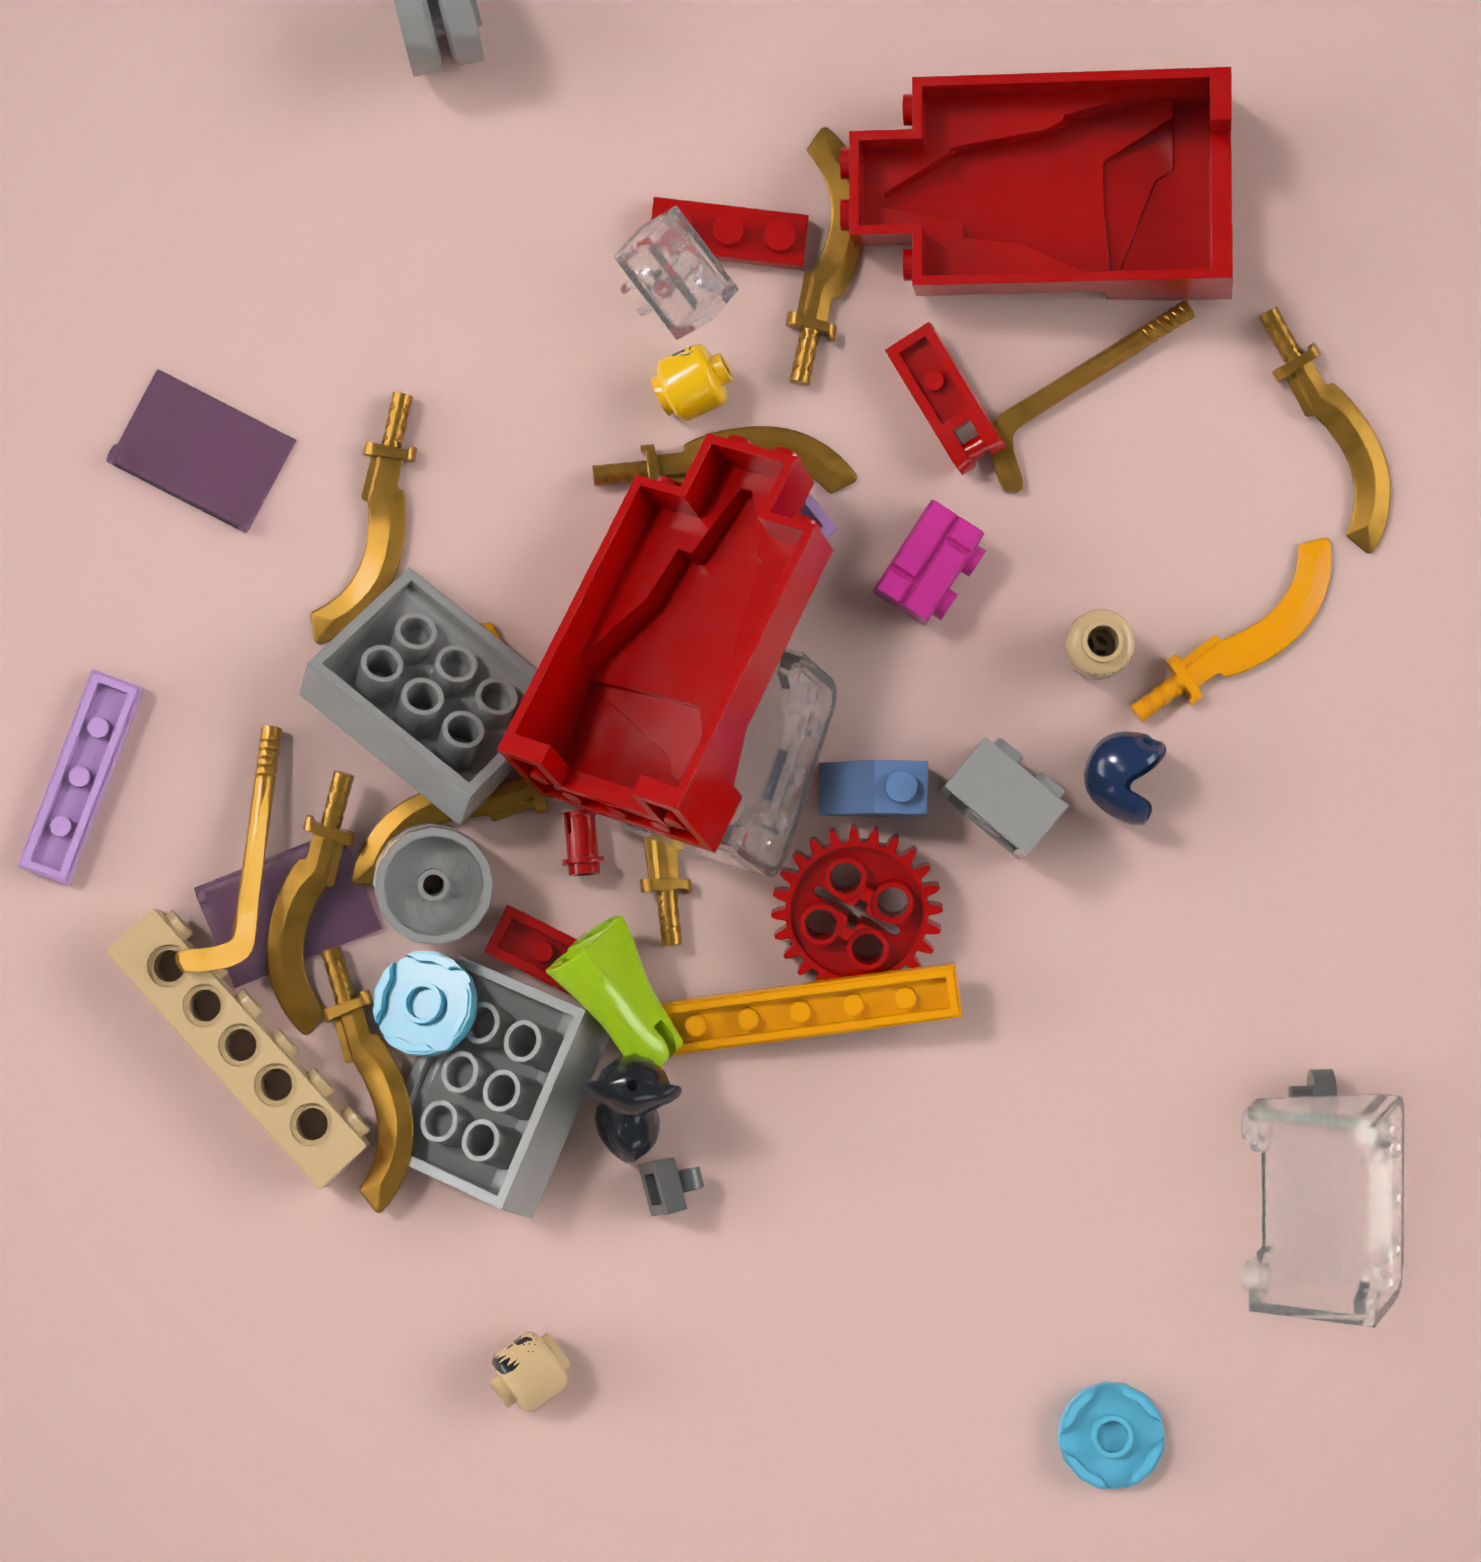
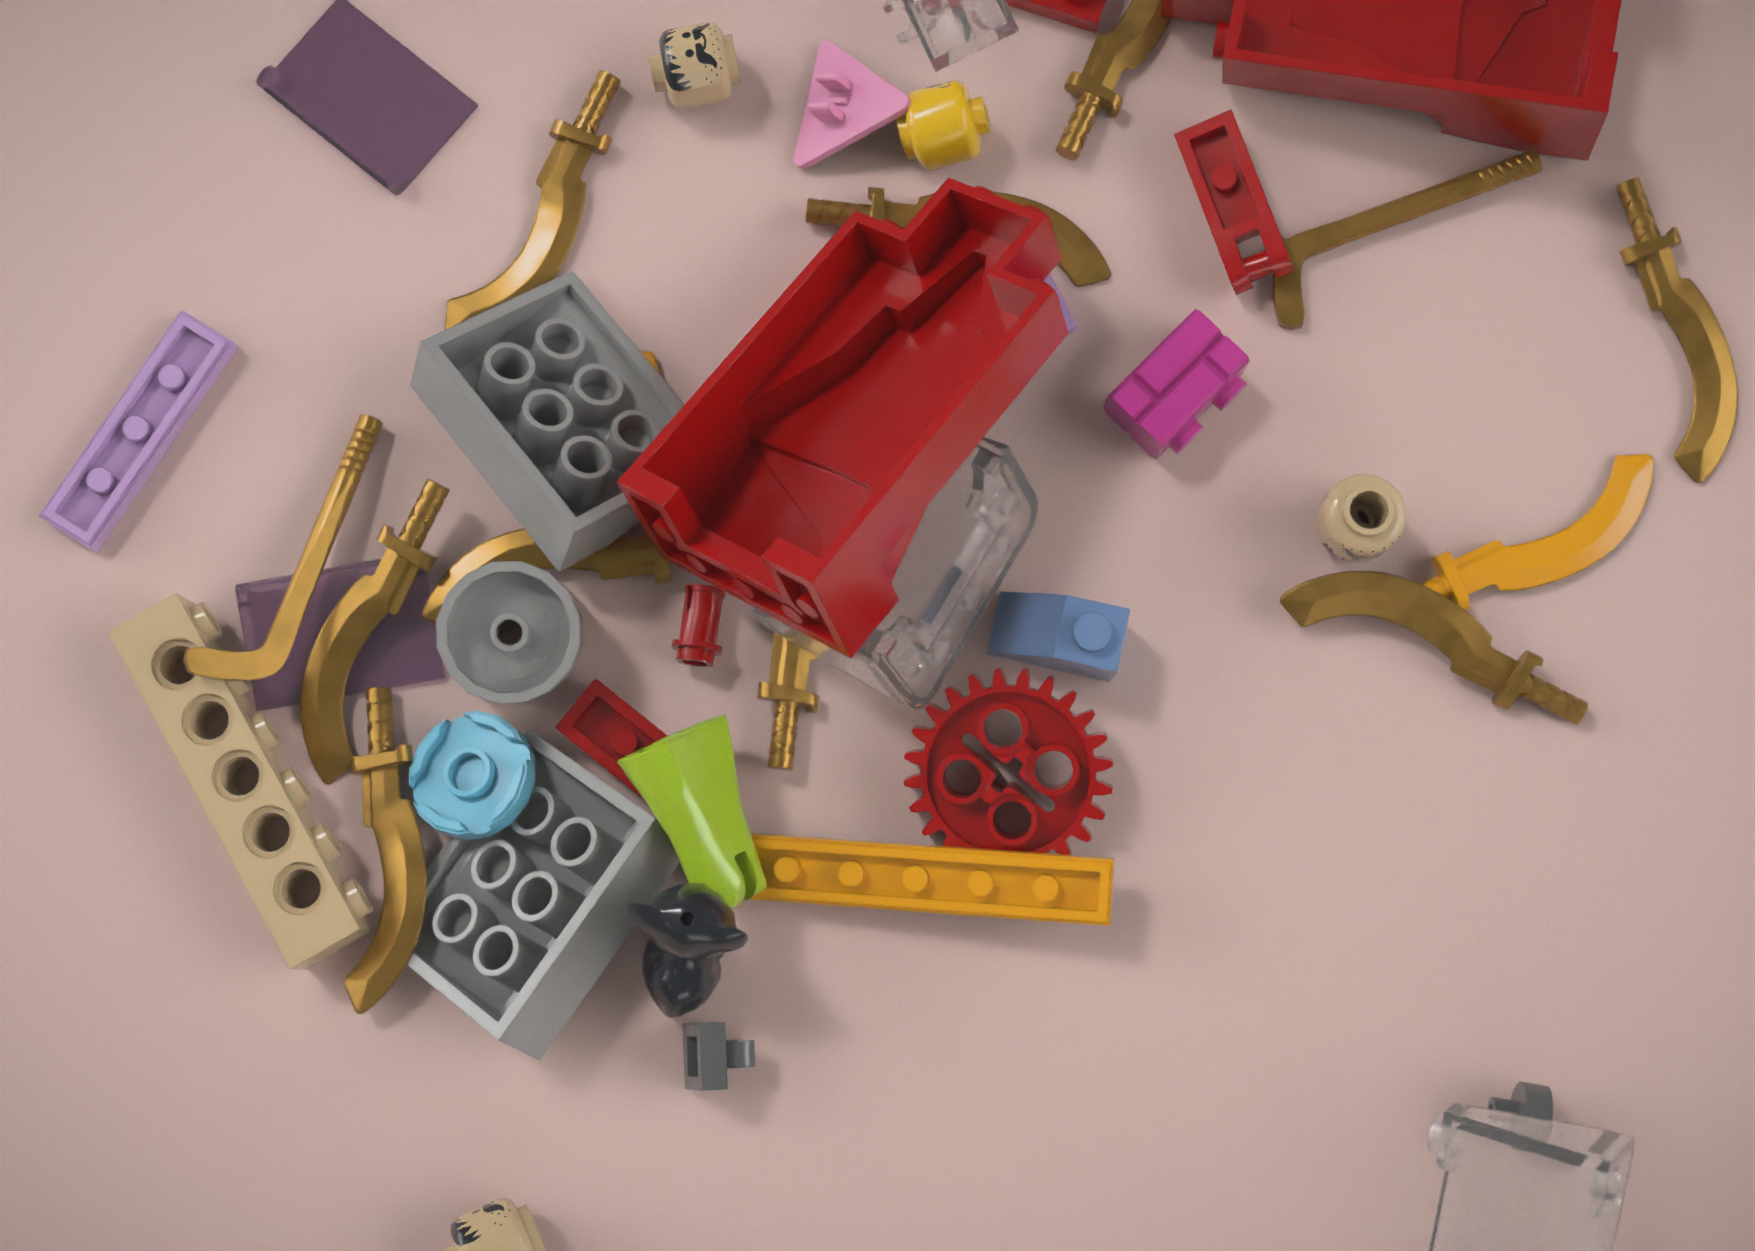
camera: 20 degrees right, 5 degrees down
(474, 373) = (695, 65): none -> tan head
(604, 380) = (843, 105): none -> bright pink piece
(1005, 797) = (1213, 671): light grey brick -> none
(1112, 769) = (1351, 665): dark blue helmet -> none
(1179, 716) = (1438, 622): none -> pearl gold sword

